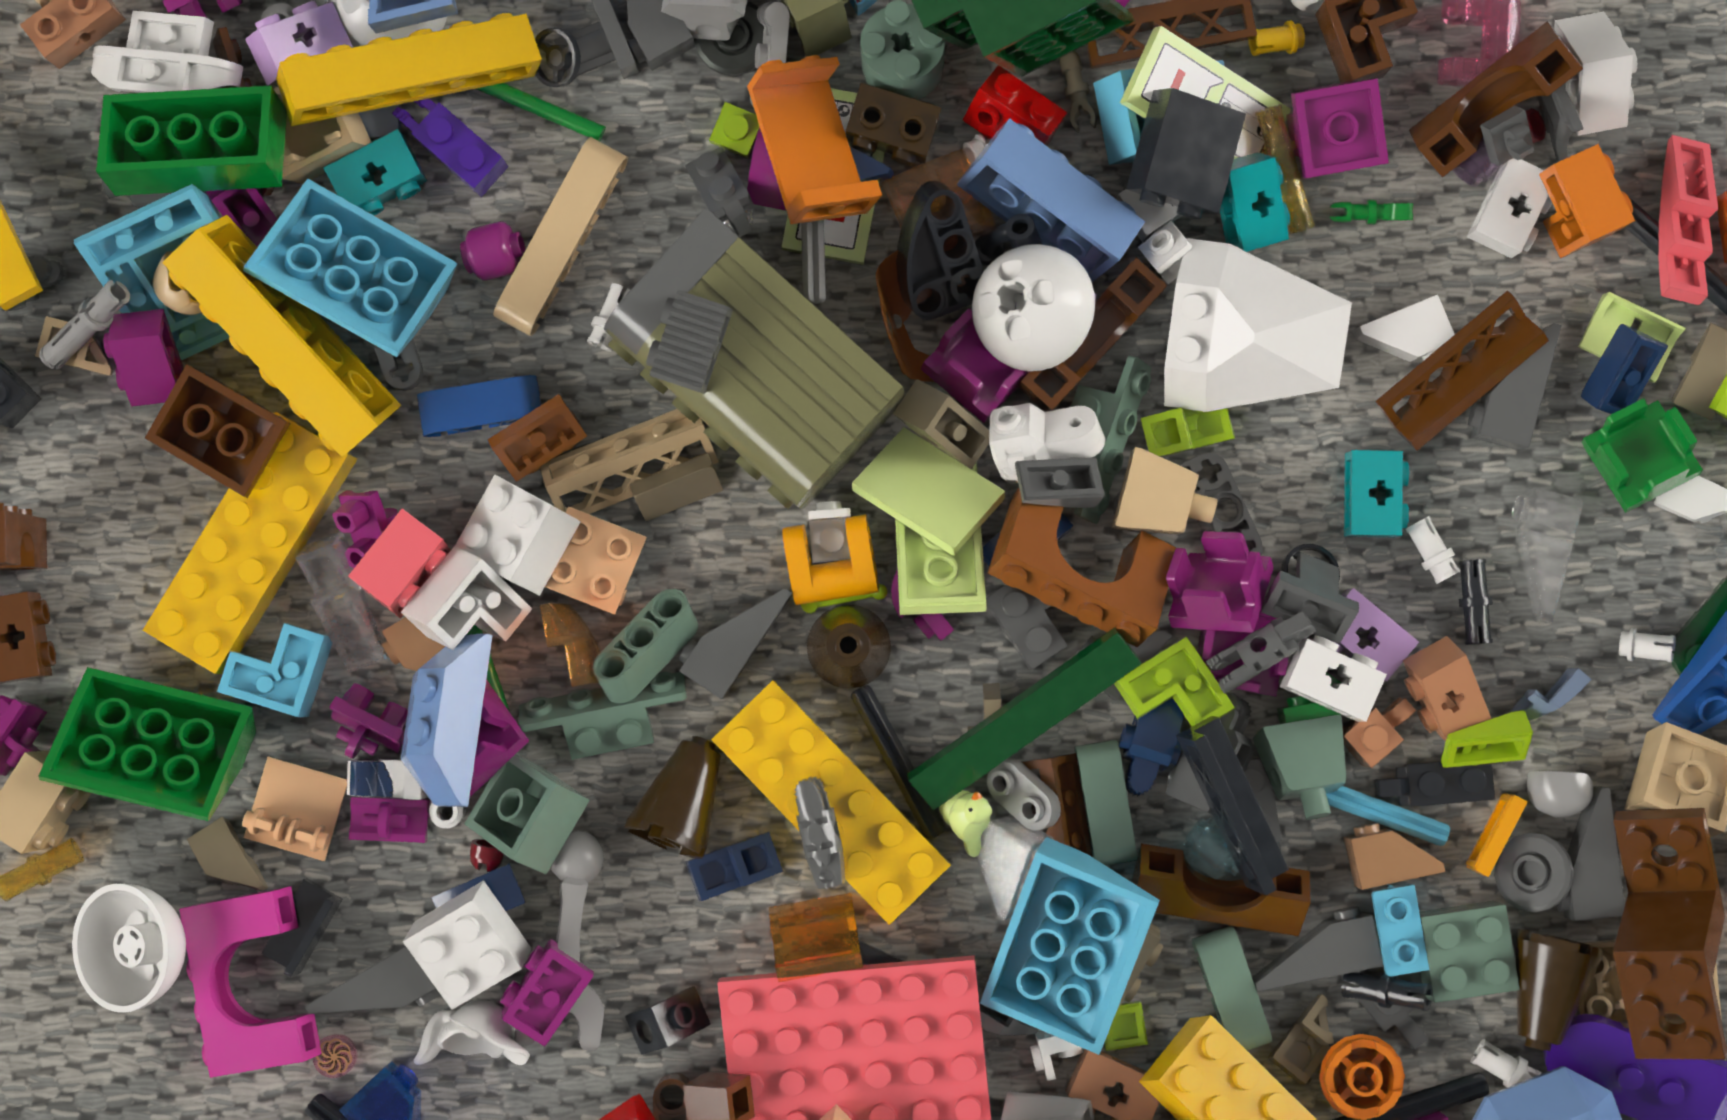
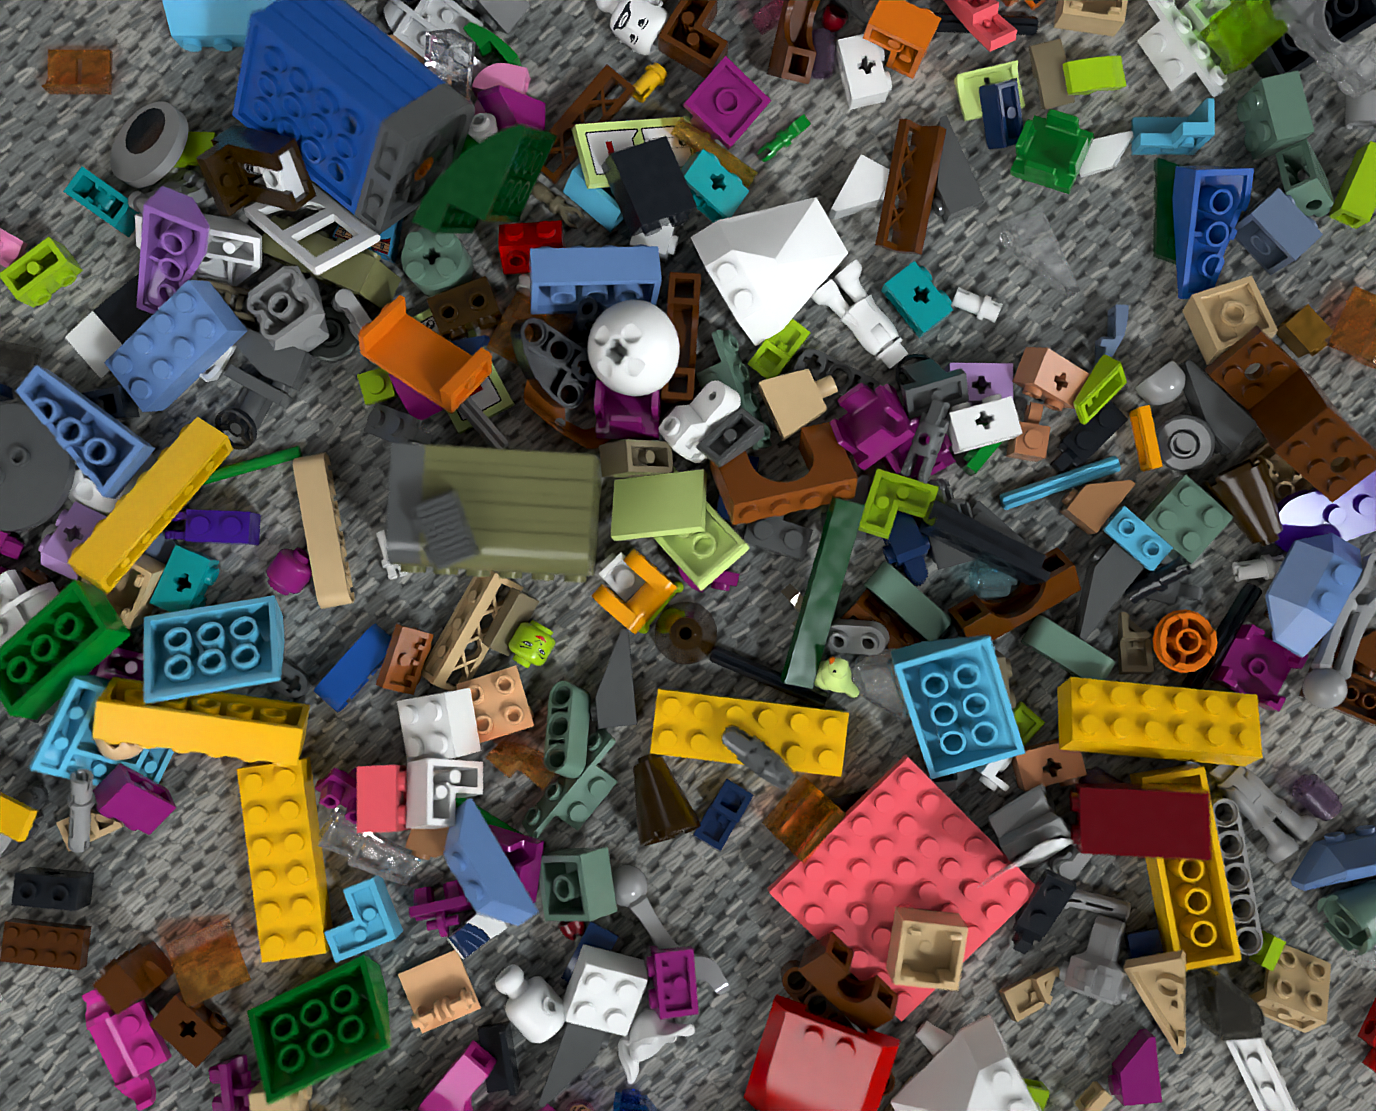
camera: 40 degrees left, 0 degrees up
(86, 585) = (207, 962): none -> clear orange slope
(217, 430) = (210, 808): reddish brown slope -> none
(224, 856) = (419, 1054): dark tan slope -> none
(380, 899) = (532, 1004): none -> white piece
(389, 819) = (498, 953): magenta hips -> none
(442, 820) = (531, 928): white pin -> none
(669, 1020) = (758, 936): black bracket -> none
(680, 528) = (531, 644): none -> lime head
(1166, 251) = (683, 254): white bracket -> none
(1302, 468) = (864, 317): none -> white piece
(1304, 761) = (1003, 485): sand green torso -> none
(1475, 601) = (1025, 314): black pin -> none
(1507, 136) = (827, 29): dark grey tile -> none
(1646, 646) = (1143, 260): white pin -> none

